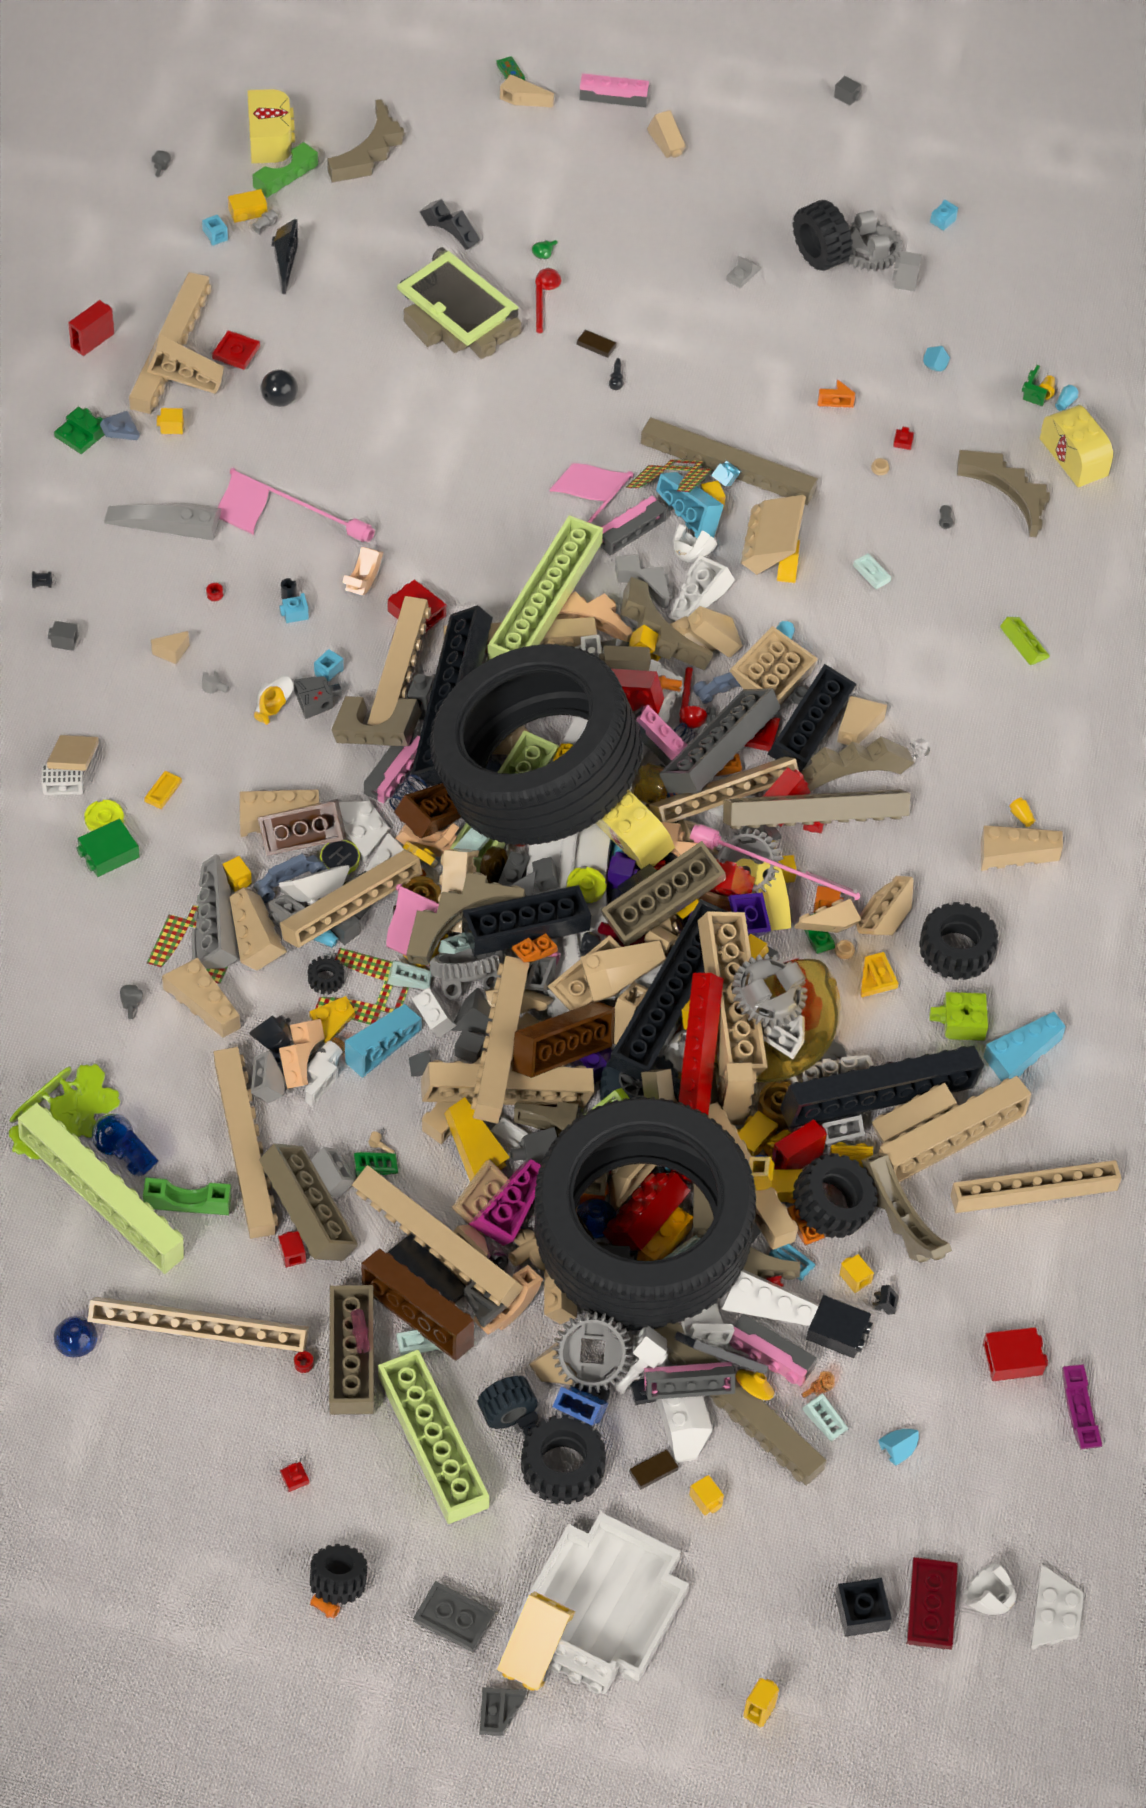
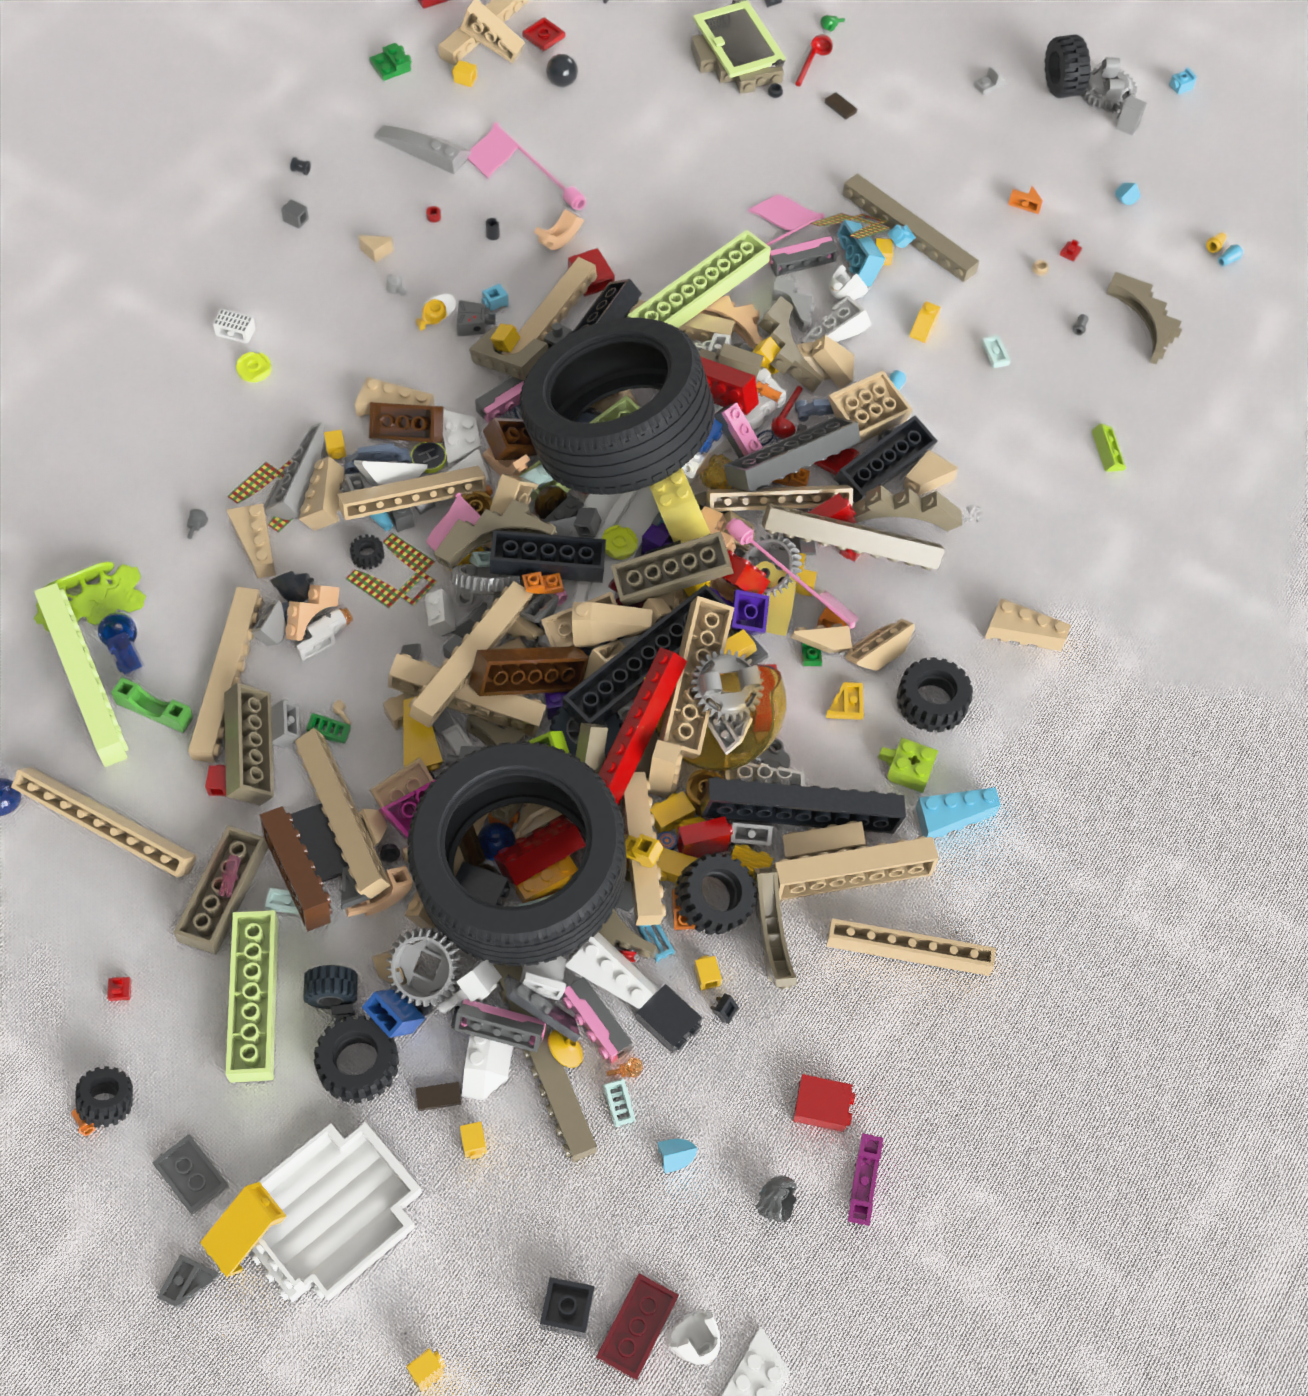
camera: 20 degrees right, 5 degrees up
(72, 752) = (250, 306): tan tile -> none
(108, 848) = (241, 392): green brick -> none
(120, 426) = (421, 66): sand blue wing -> none
(163, 789) = (312, 358): yellow tile -> none
(294, 609) = (490, 245): medium azure brick -> none
(309, 1364) = (180, 892): red bush -> none
(333, 1016) = (355, 589): yellow wing -> none
(367, 706) = (505, 337): none -> yellow brick
(381, 1039) = (384, 621): medium azure wedge -> none
(401, 980) = (429, 577): light aqua slope -> none
(425, 855) = (492, 473): yellow wing -> none
(519, 346) = (775, 90): none -> black plate
(589, 941) = (597, 590): black piece -> none
(616, 382) = (843, 139): black bar -> none
(772, 532) = (918, 293): tan slope -> none
(844, 949) = (829, 670): tan plate -> none
(1010, 1449) = (777, 1199): none -> dark grey hair
(1022, 811) = (1043, 596): yellow cone -> none
(1034, 393) = (1201, 242): green bracket -> none
(1078, 444) = (1224, 295): light yellow brick -> none

